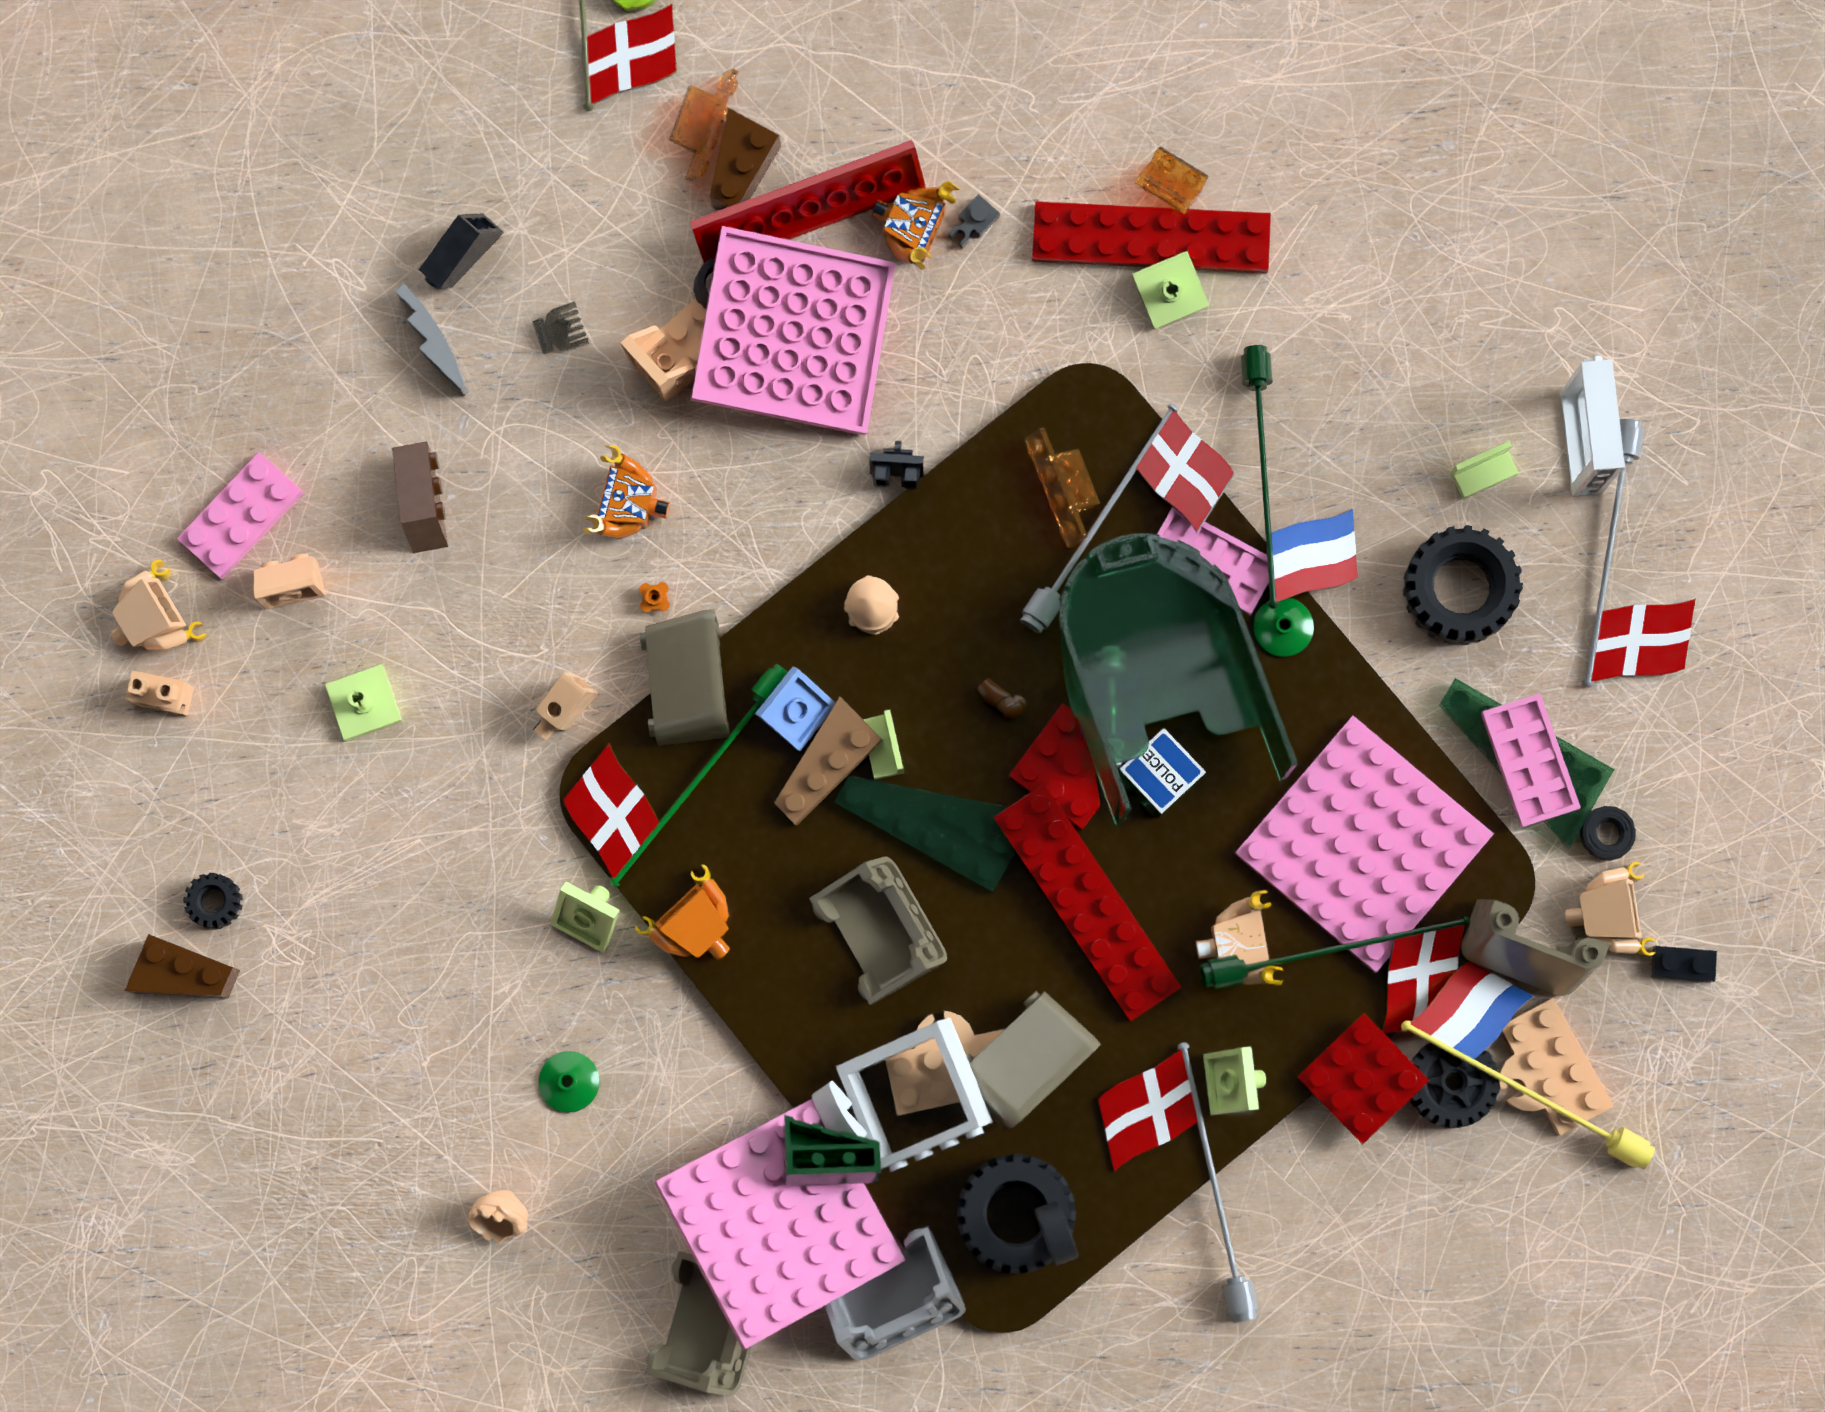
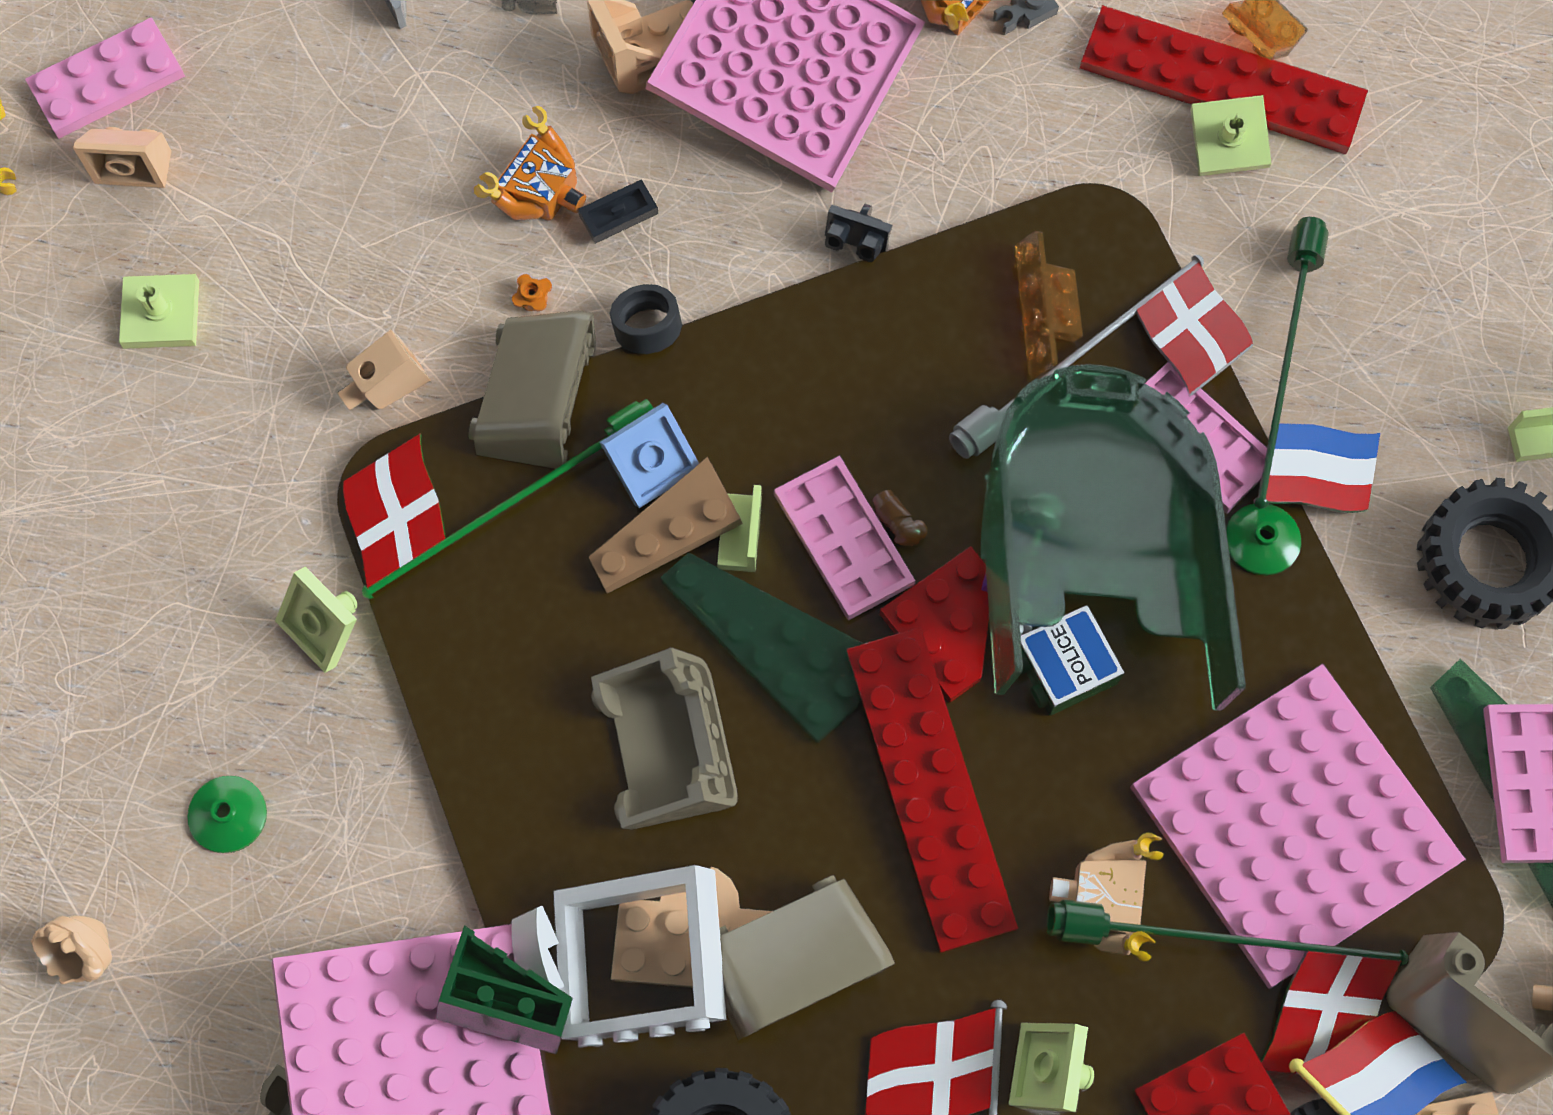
camera: 10 degrees right, 10 degrees down
(419, 496) = (306, 111): reddish brown wedge -> none
(693, 922) = (442, 664): orange torso -> none
(699, 506) = (618, 211): none -> black plate
(741, 577) = (645, 298): none -> black tyre
(872, 605) = (779, 369): light nougat hair -> none
(963, 726) = (844, 537): none -> bright pink plate

